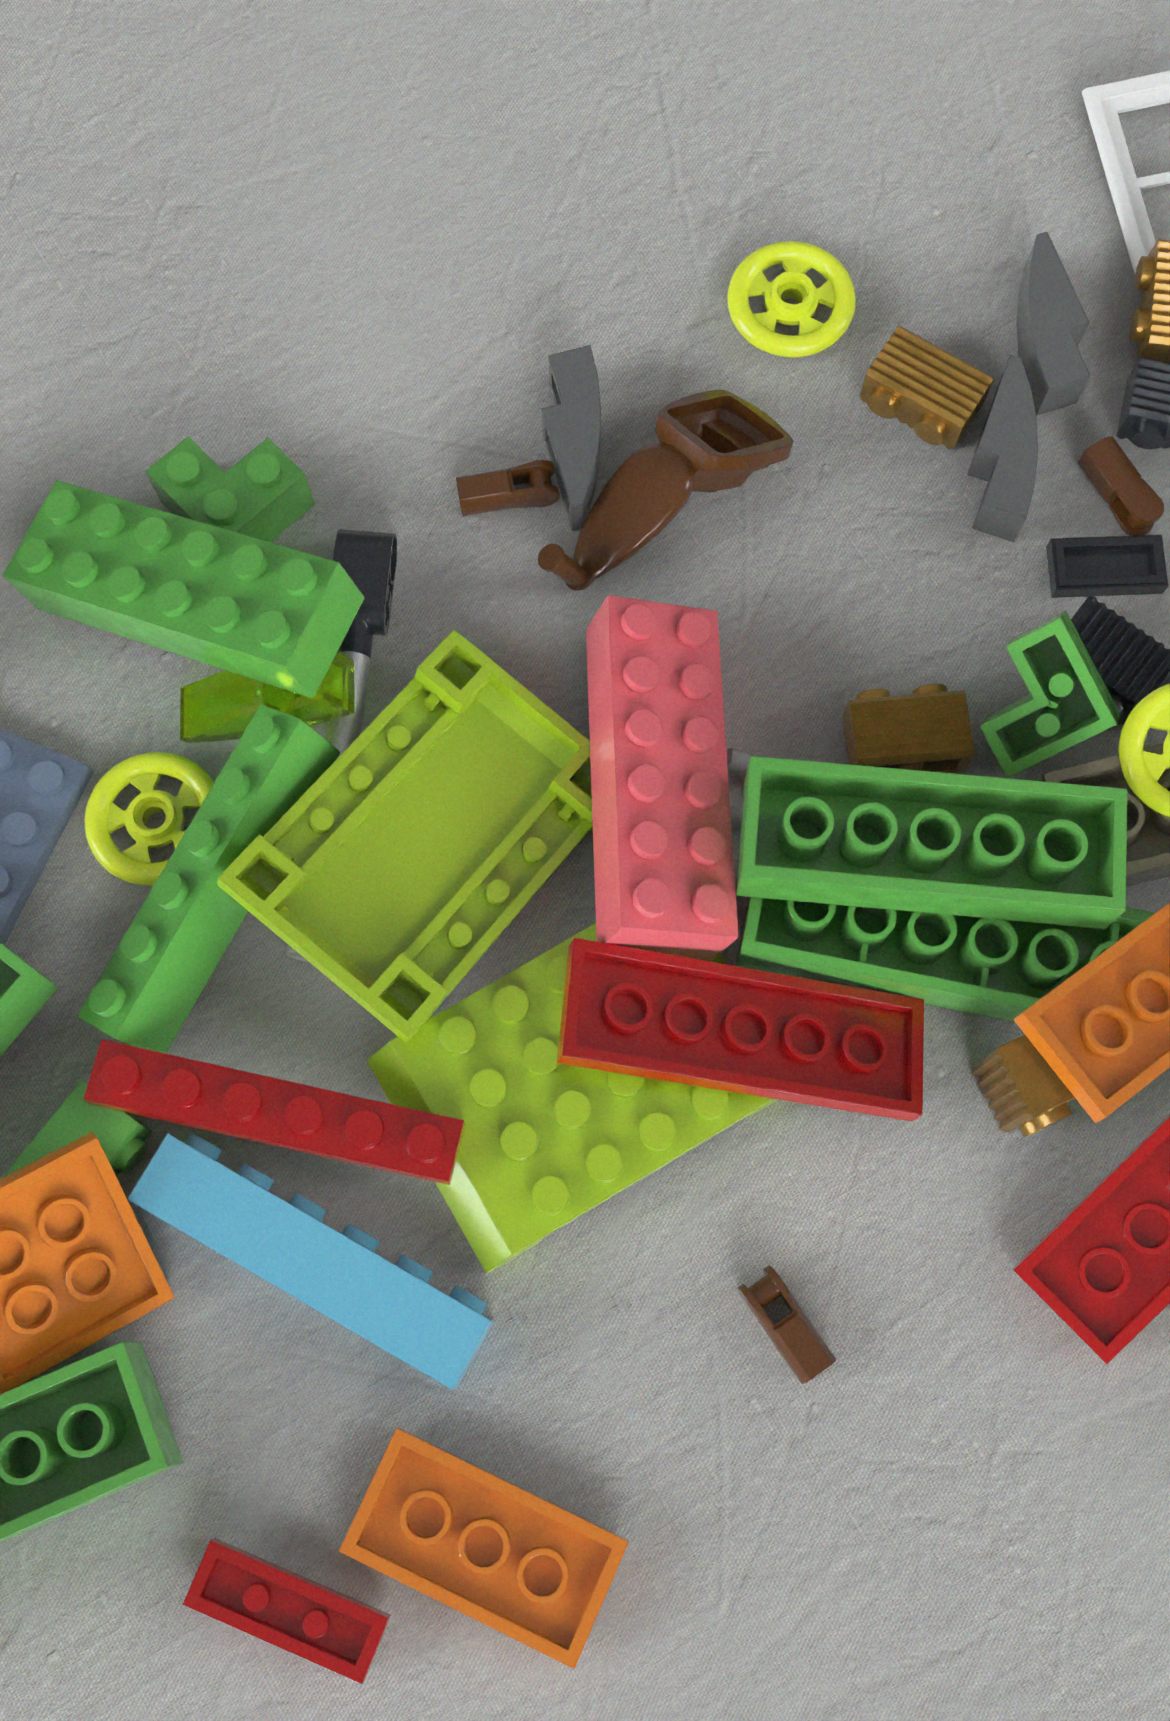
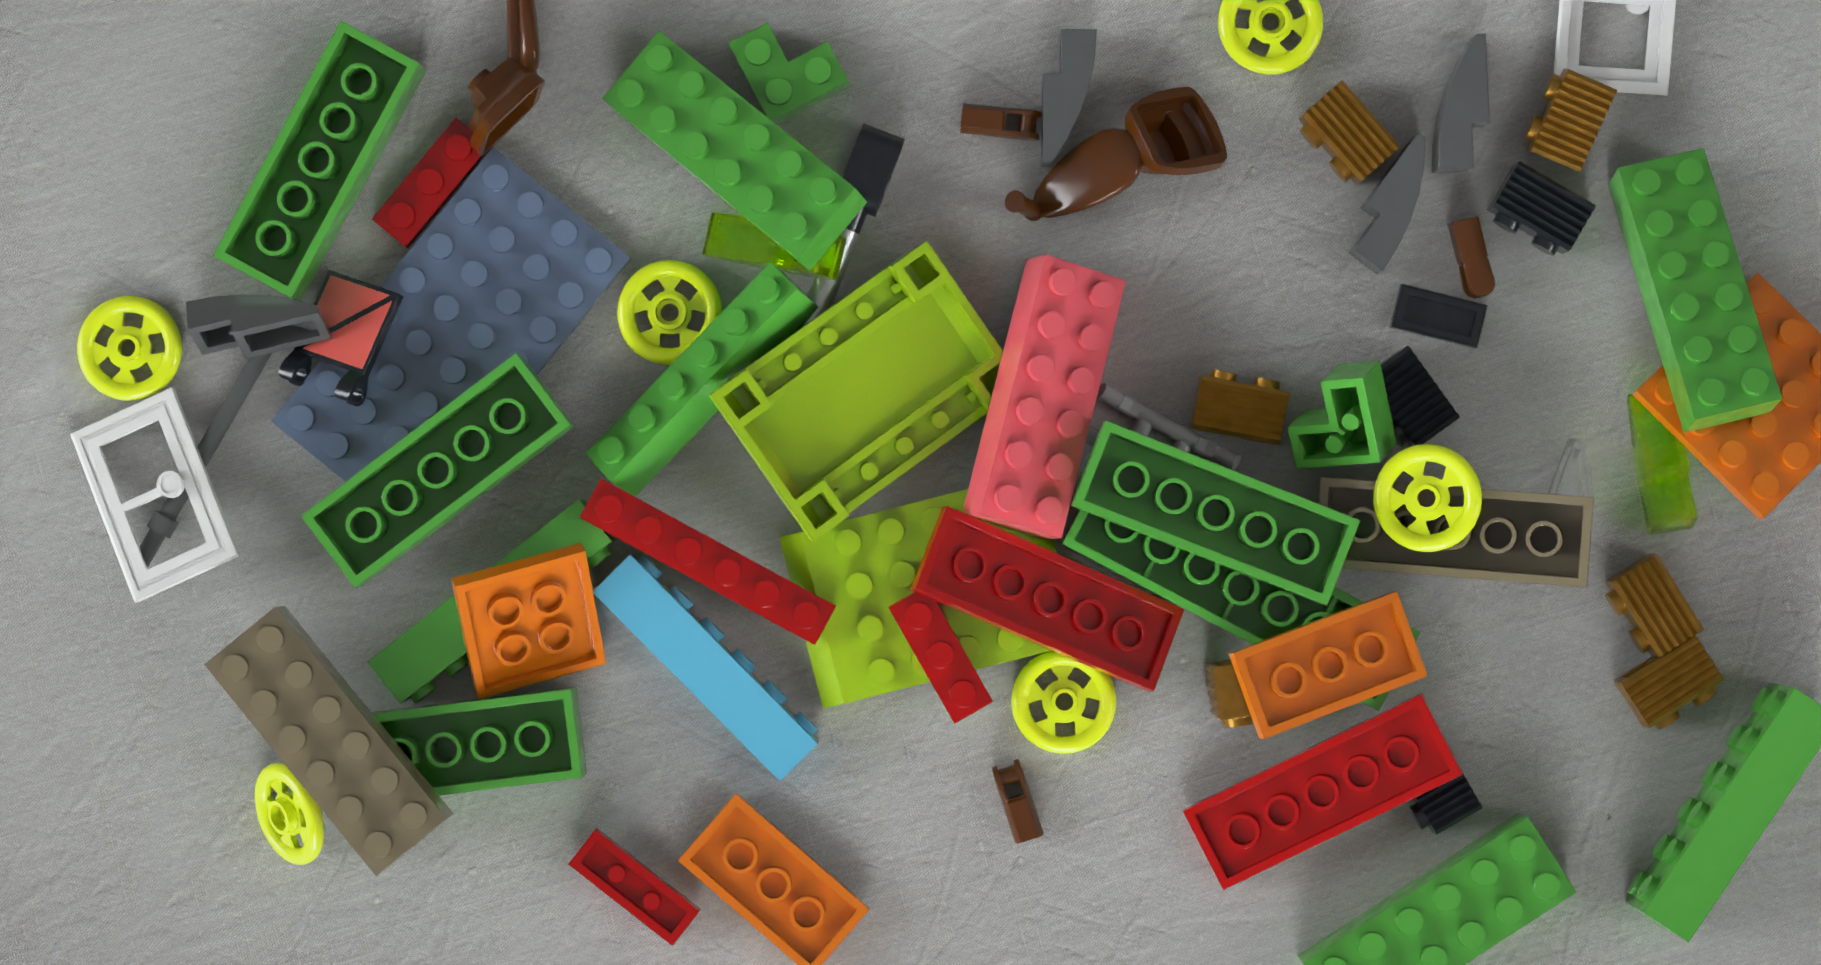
camera: 20 degrees right, 15 degrees up
(624, 1146) = (940, 655): none -> red plate
(791, 1219) = (1042, 732): none -> neon yellow plate

